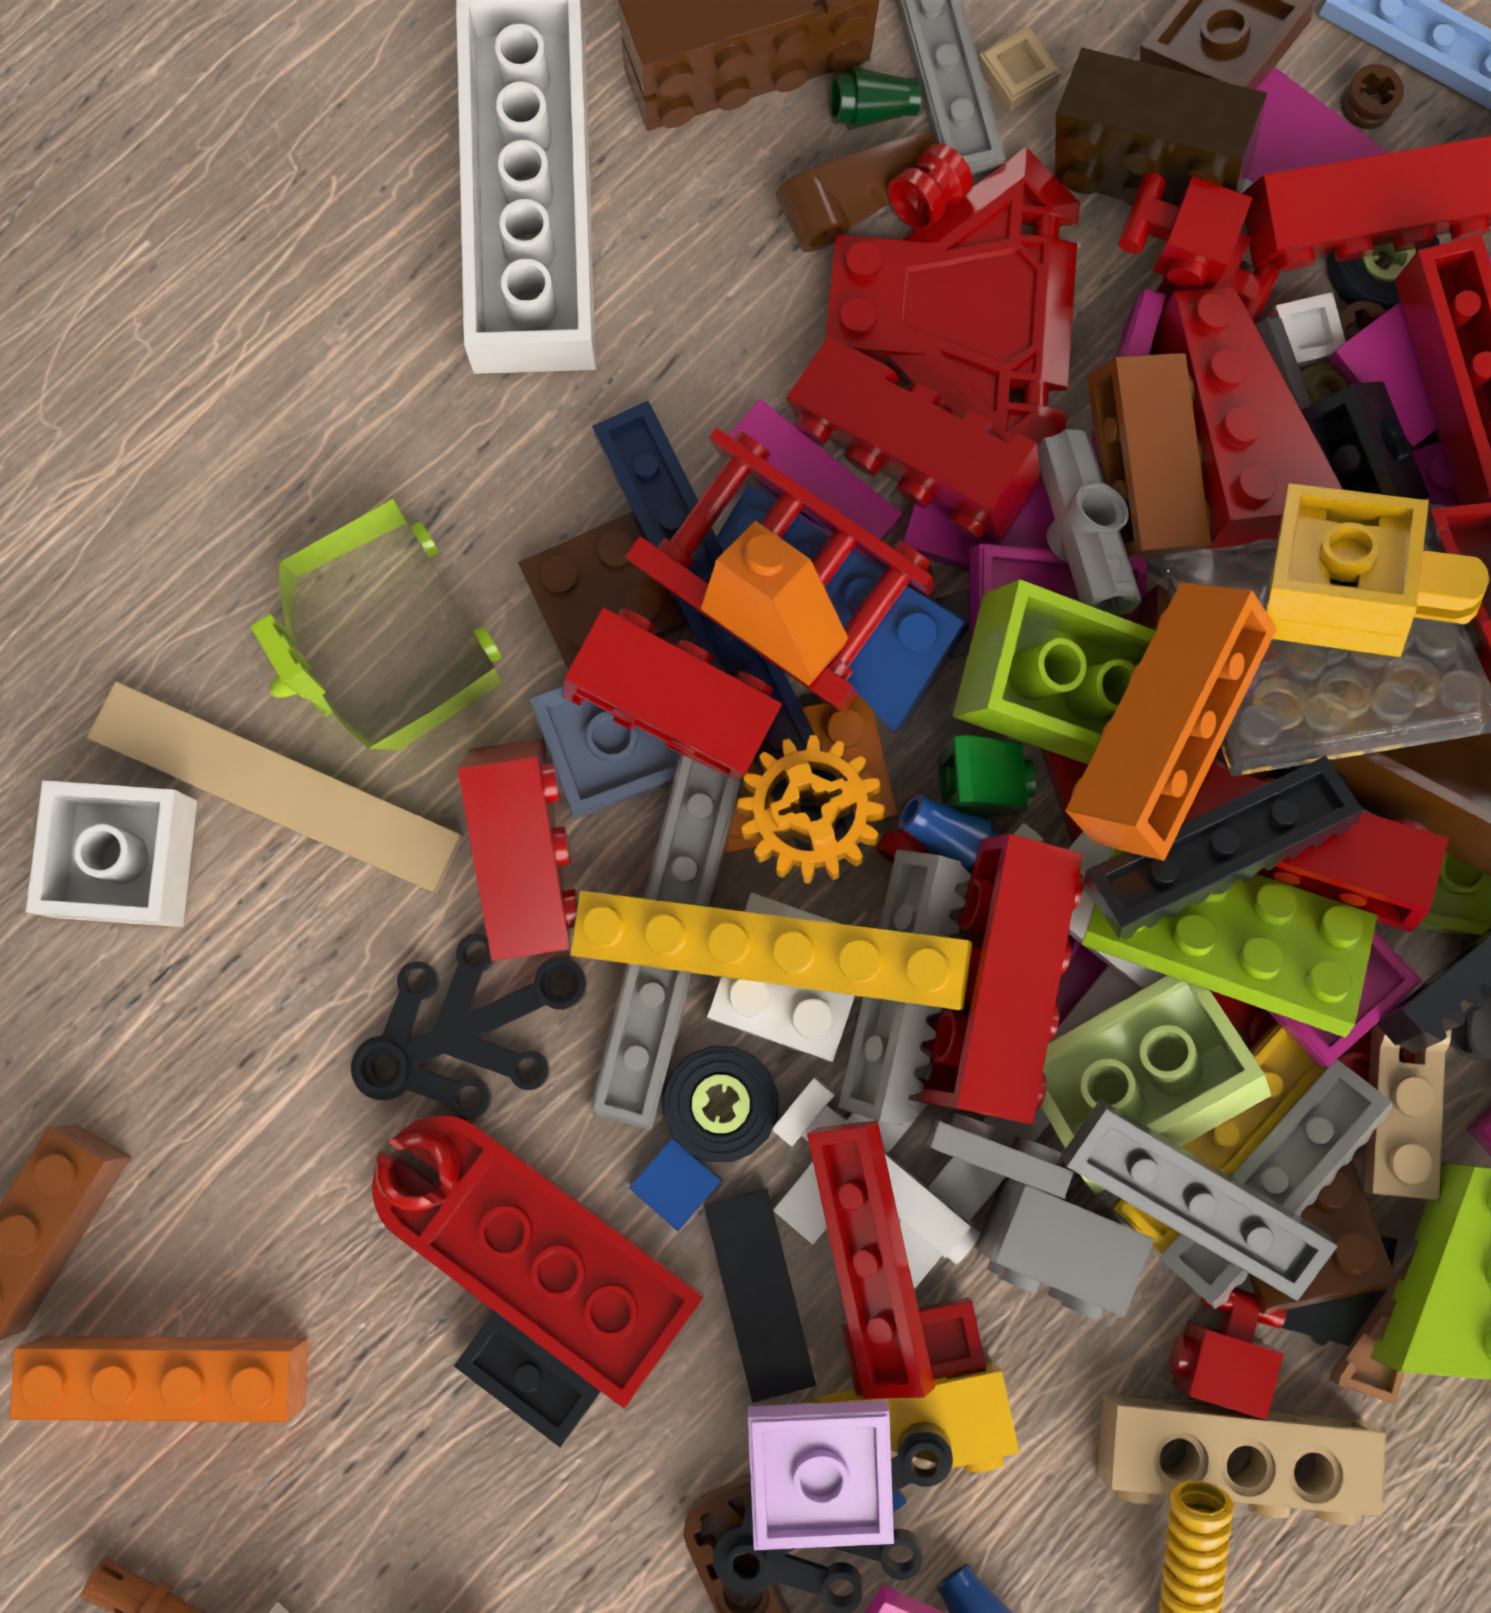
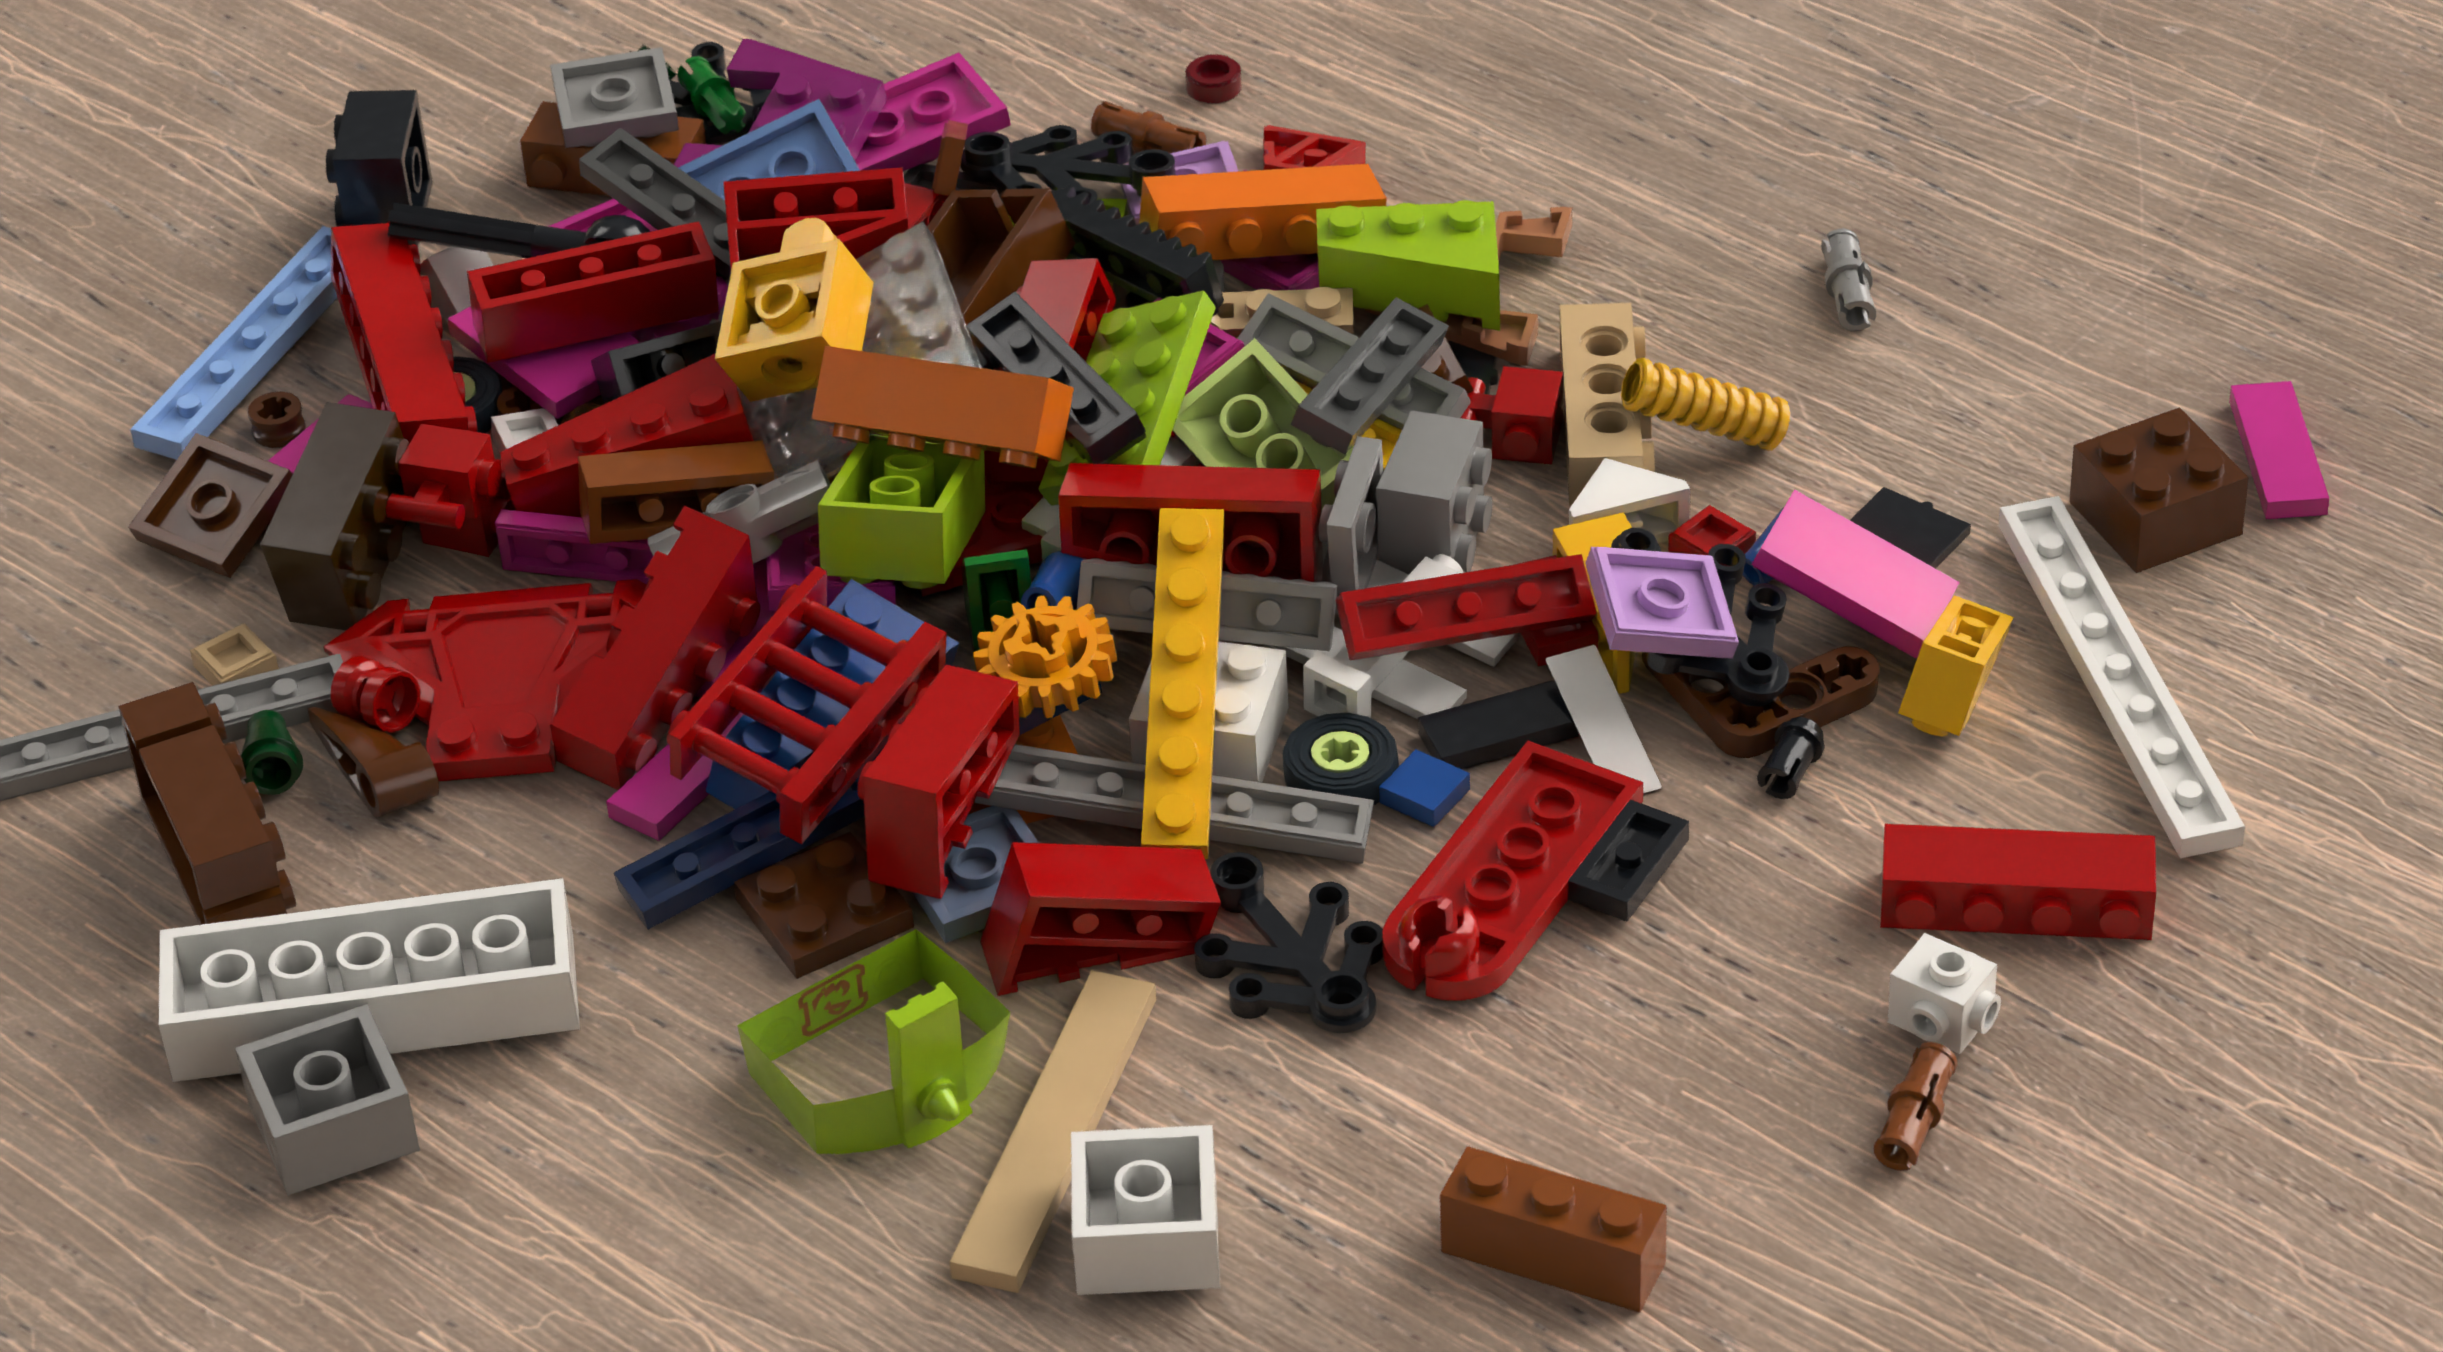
camera: 85 degrees left, 40 degrees down
(159, 1379) = (1684, 1112): orange brick -> none
(379, 147) = (327, 1099): none -> light grey brick
(656, 1571) = (1796, 747): none -> black pin
(734, 1379) = (1601, 715): none -> white sticker
(775, 603) = (844, 669): orange slope -> none
(1014, 1541) = (1710, 529): none -> red tile
(1059, 1454) = (1645, 497): none -> white slope

